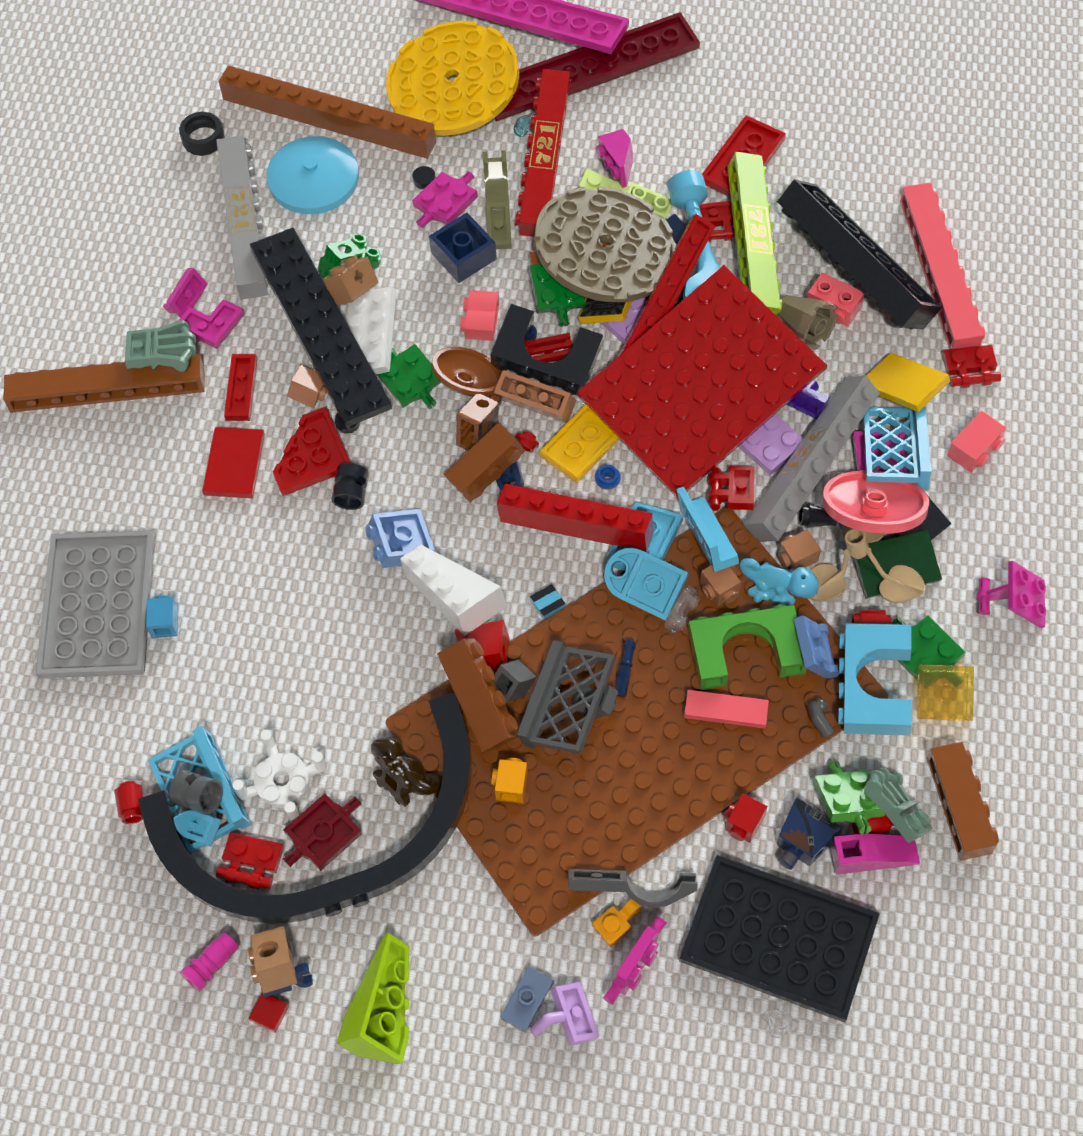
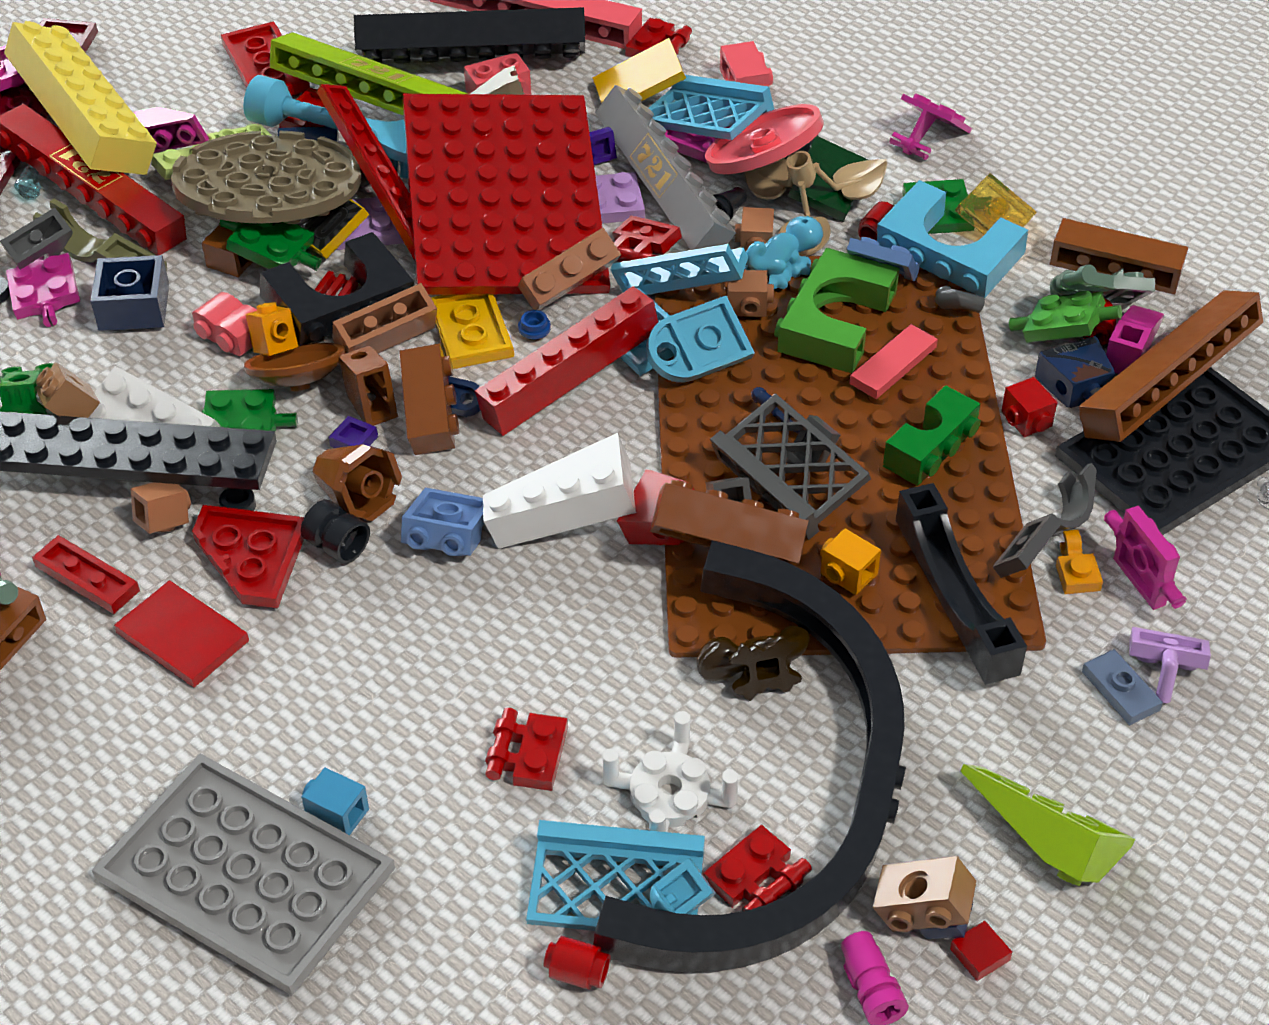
camera: 60 degrees left, 15 degrees down
(196, 792) = (634, 864): dark grey wheel -> none
(267, 695) = (539, 751): none -> red plate
(322, 832) = (775, 776): dark red plate -> none
(393, 471) = (358, 479): none -> dark orange cone
(436, 443) = (352, 433): none -> dark purple plate
(464, 169) = (40, 237): none -> dark grey slope
(482, 341) = (271, 329): none -> light orange brick
(502, 889) = (987, 637): none -> black arch
(547, 602) = (641, 442): tile -> none
(596, 95) = (79, 99): none -> light yellow brick
(653, 466) = (569, 270): none -> nougat brick
(677, 618) = (762, 341): clear plate -> none
(684, 777) = (947, 423): none -> green arch
(850, 892) = (1170, 365): none -> dark orange brick

